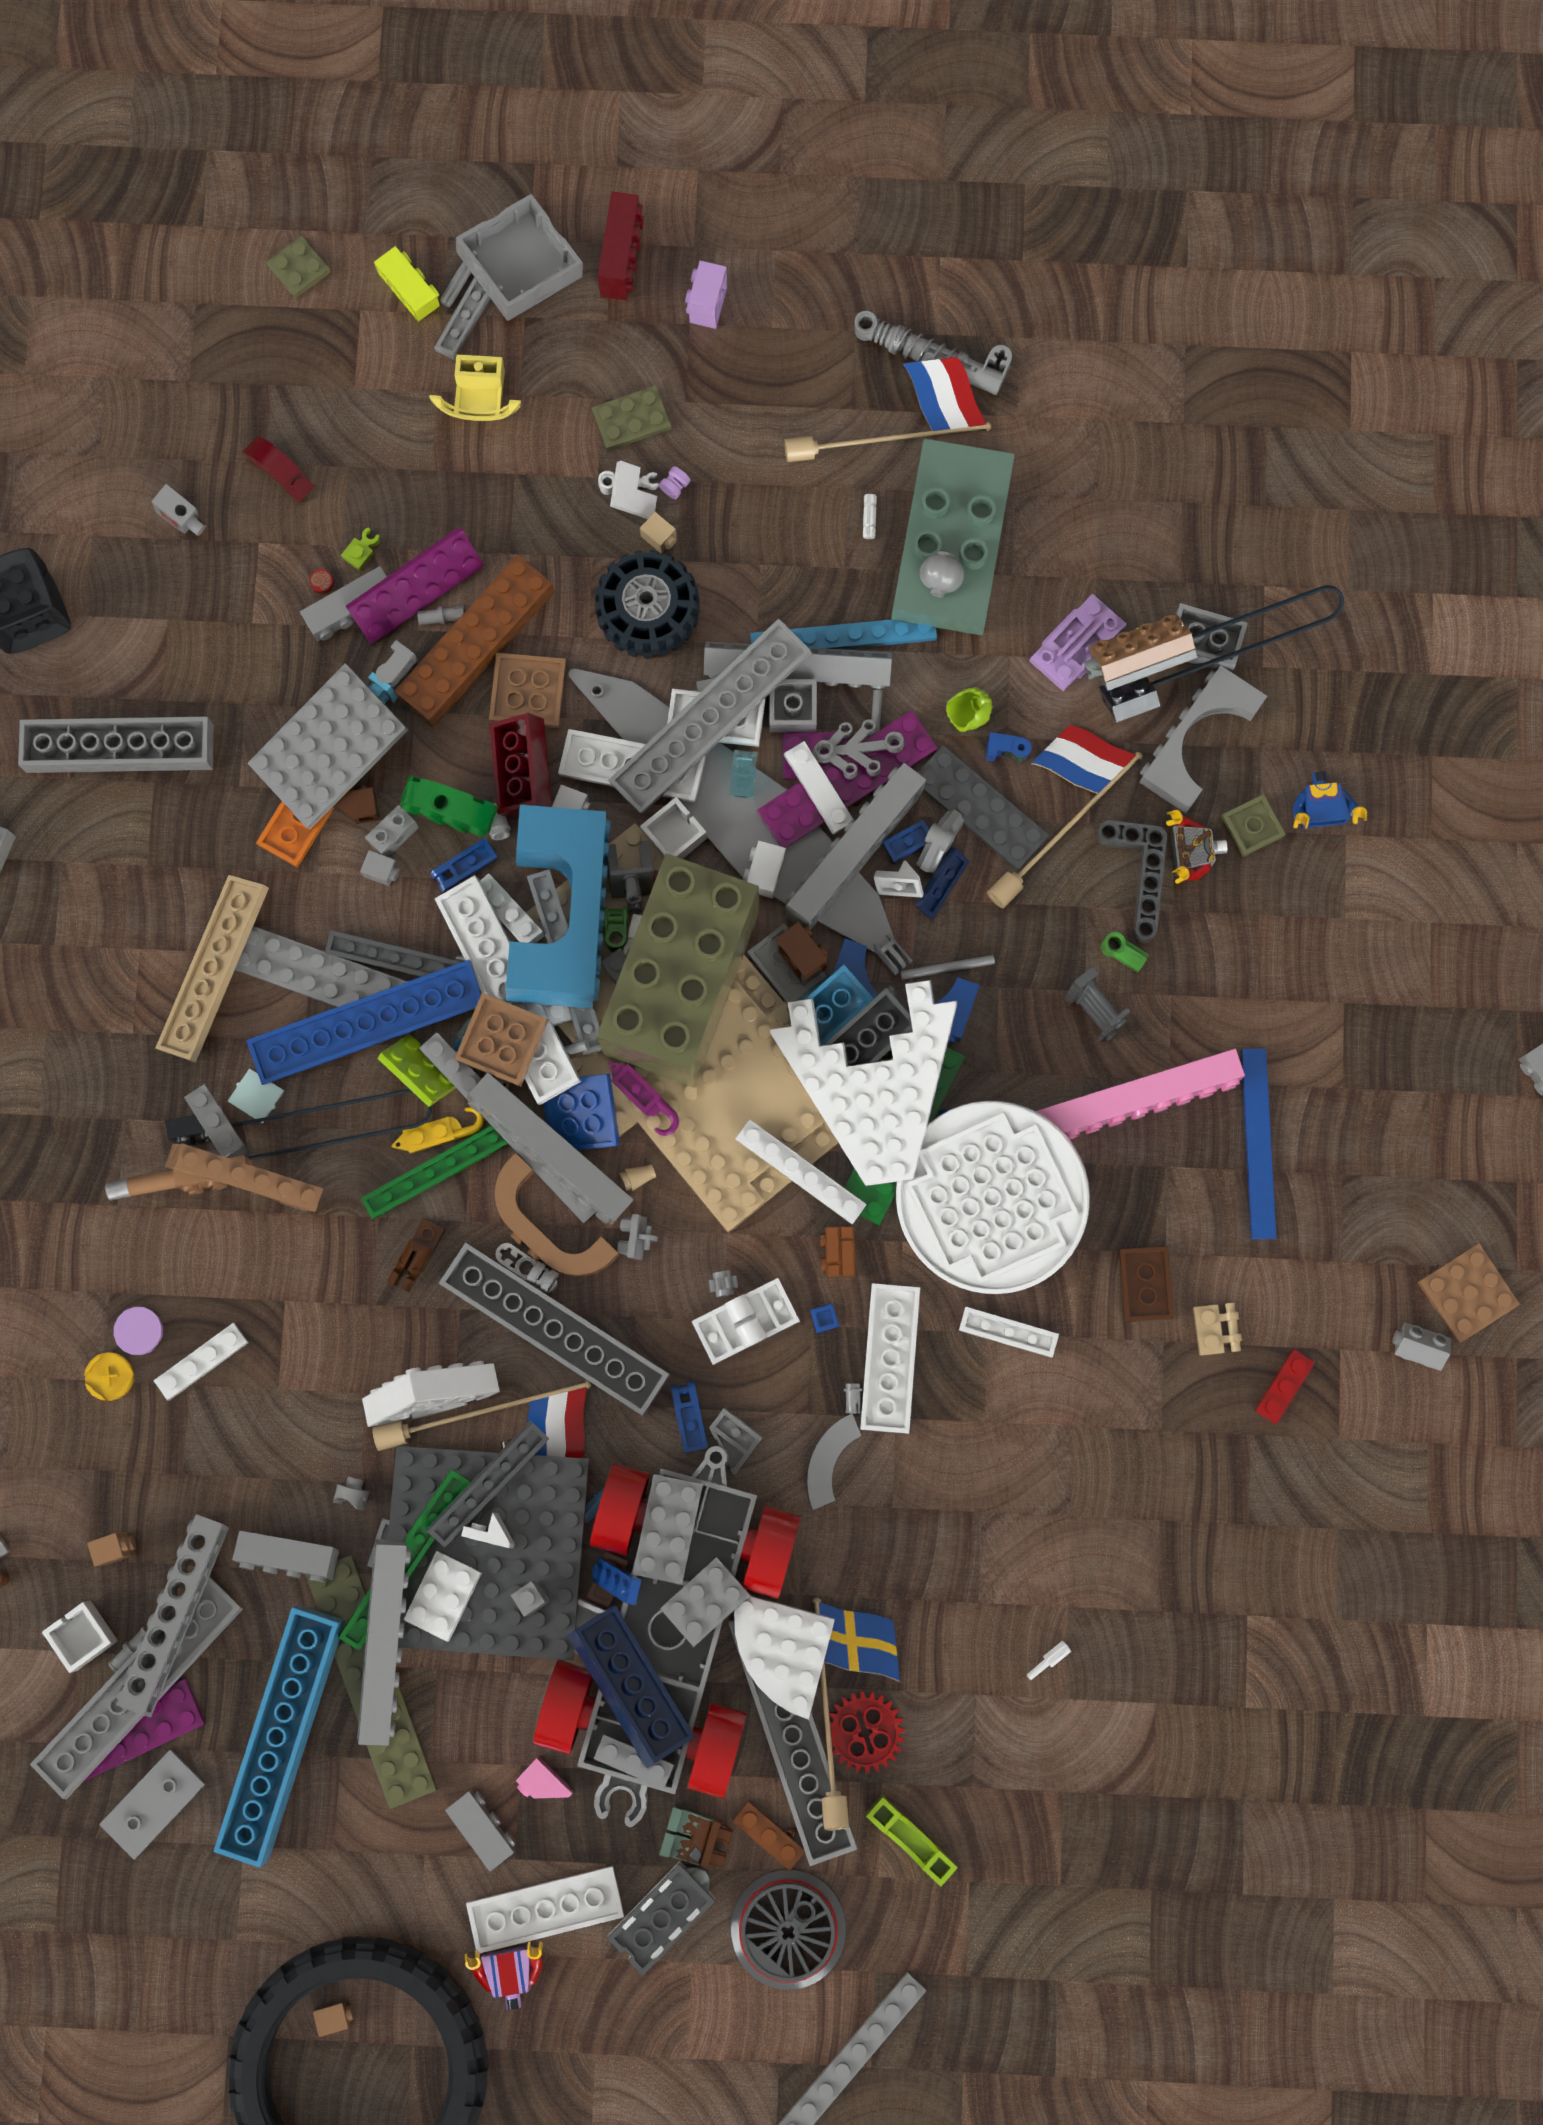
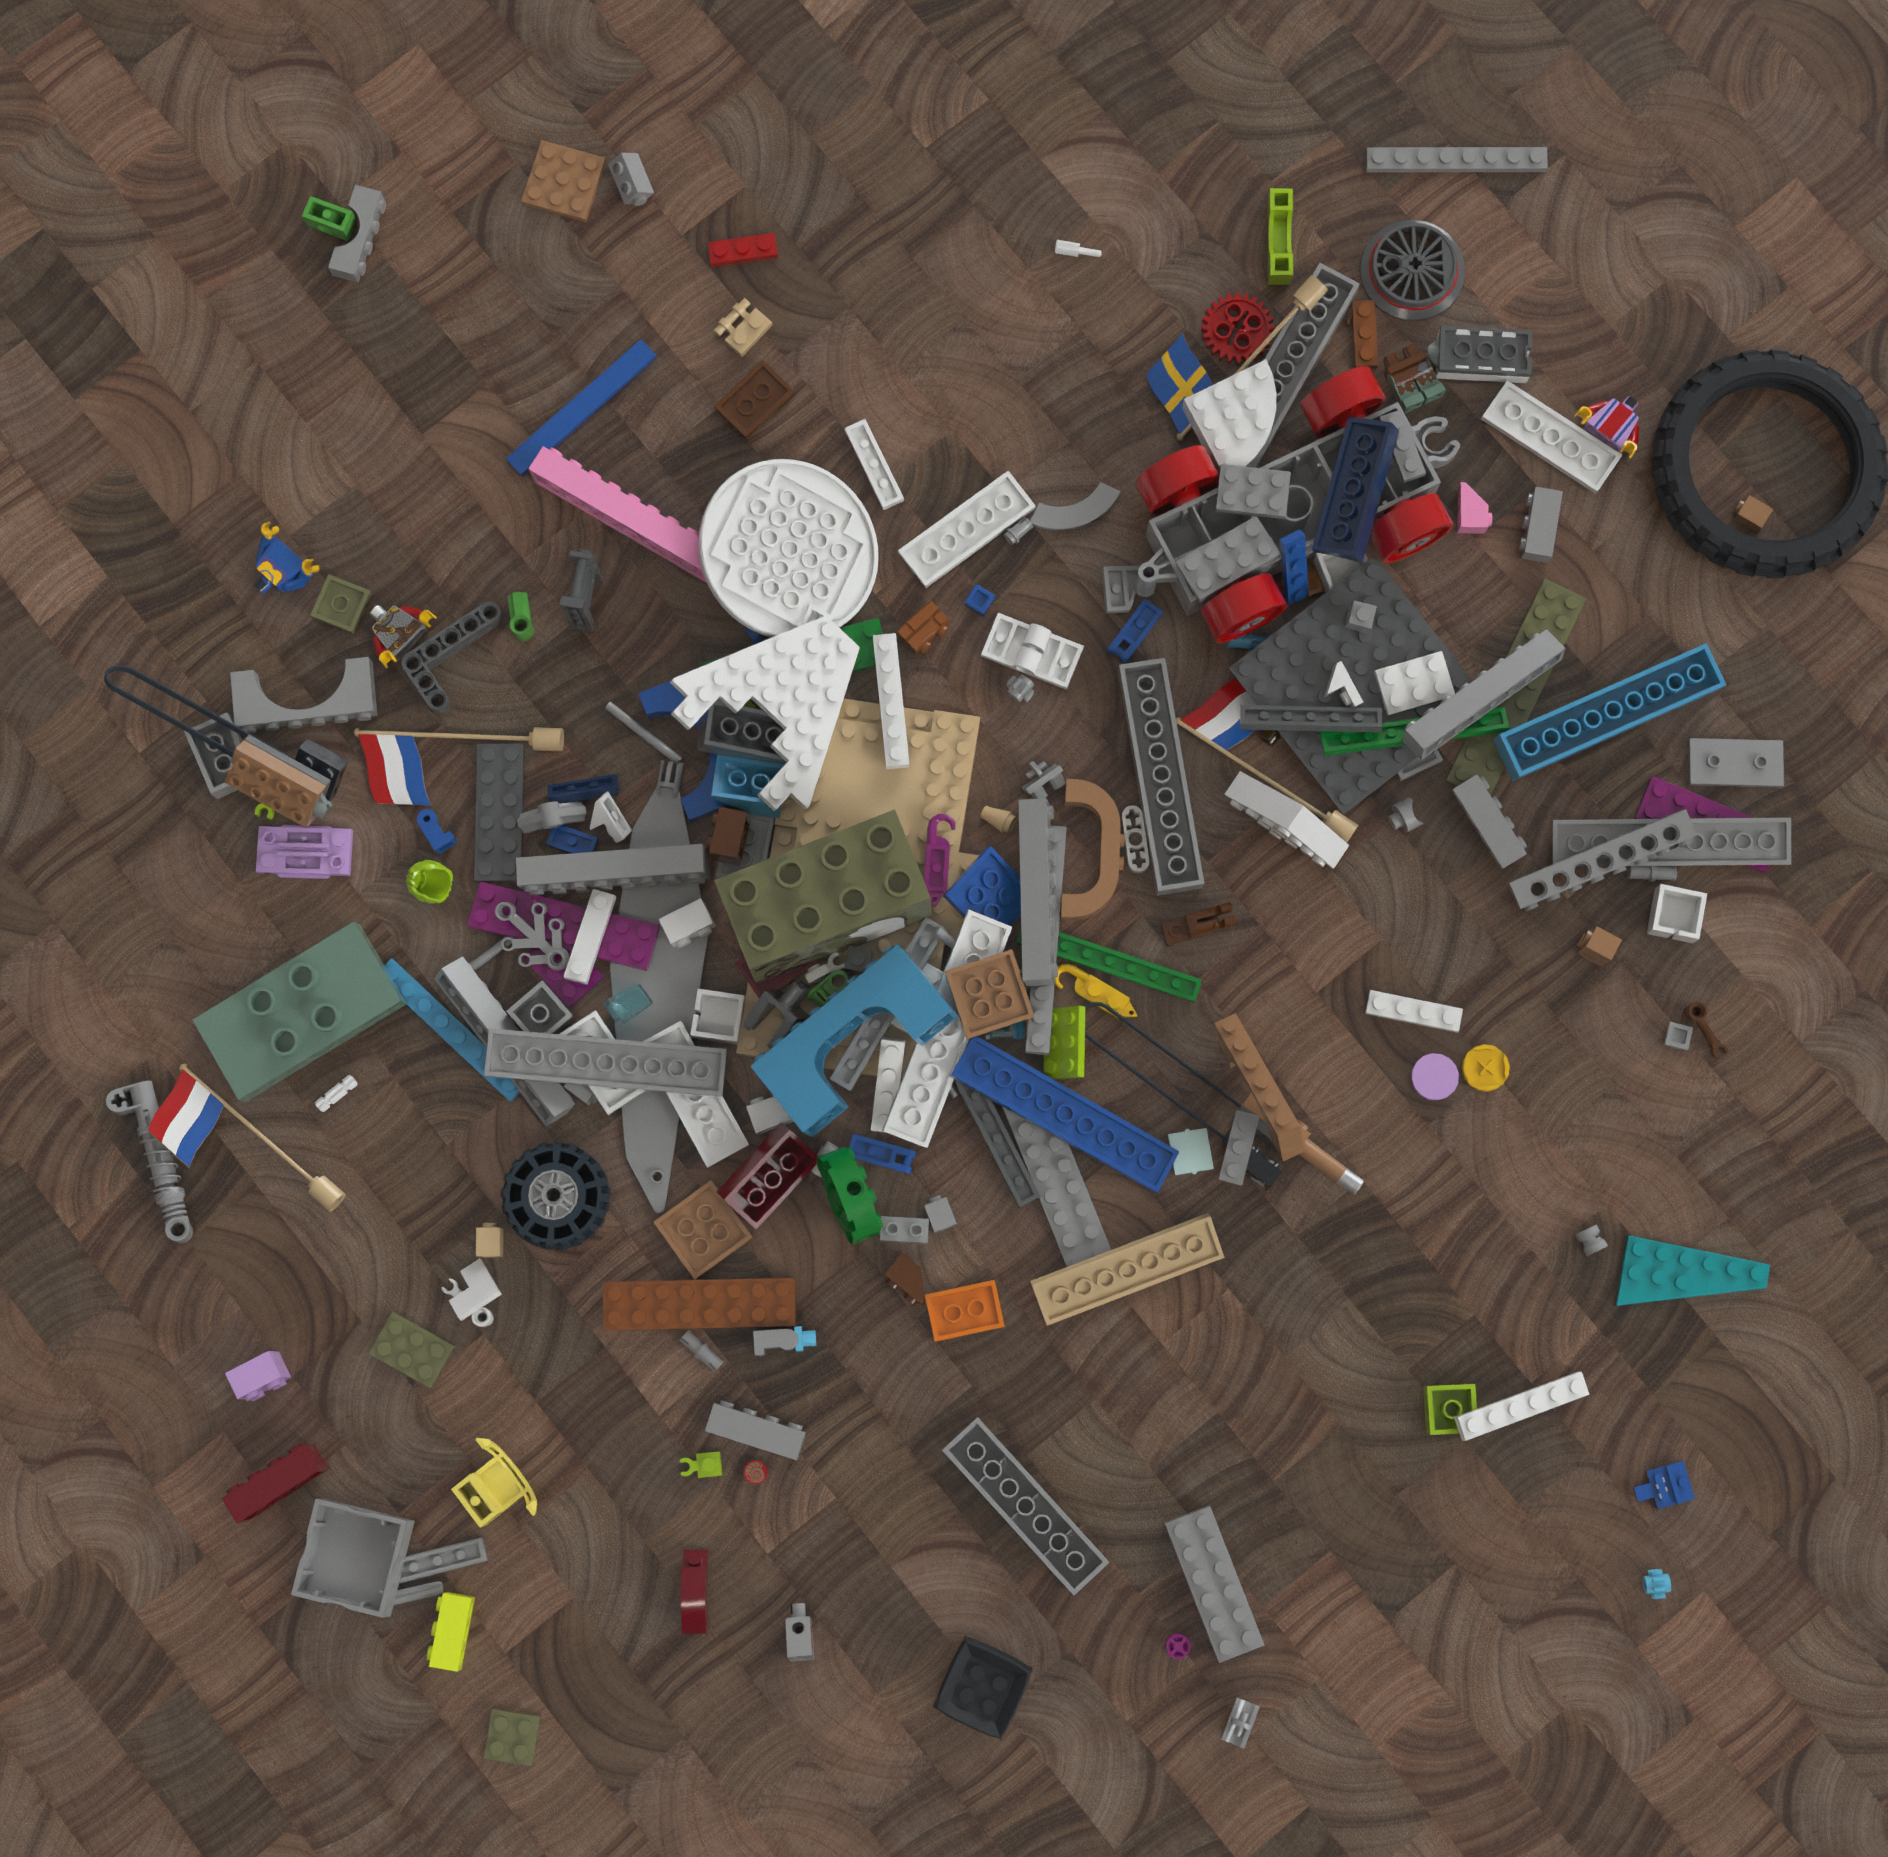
camera: 130 degrees left, 0 degrees up
(327, 746) = (883, 1335): light grey plate -> none
(415, 585) = (696, 1389): magenta plate -> none
(546, 1281) = (1132, 816): light grey wheel -> none
(674, 482) = (437, 1266): lavender wheel -> none
(941, 574) = (341, 984): light grey plant -> none

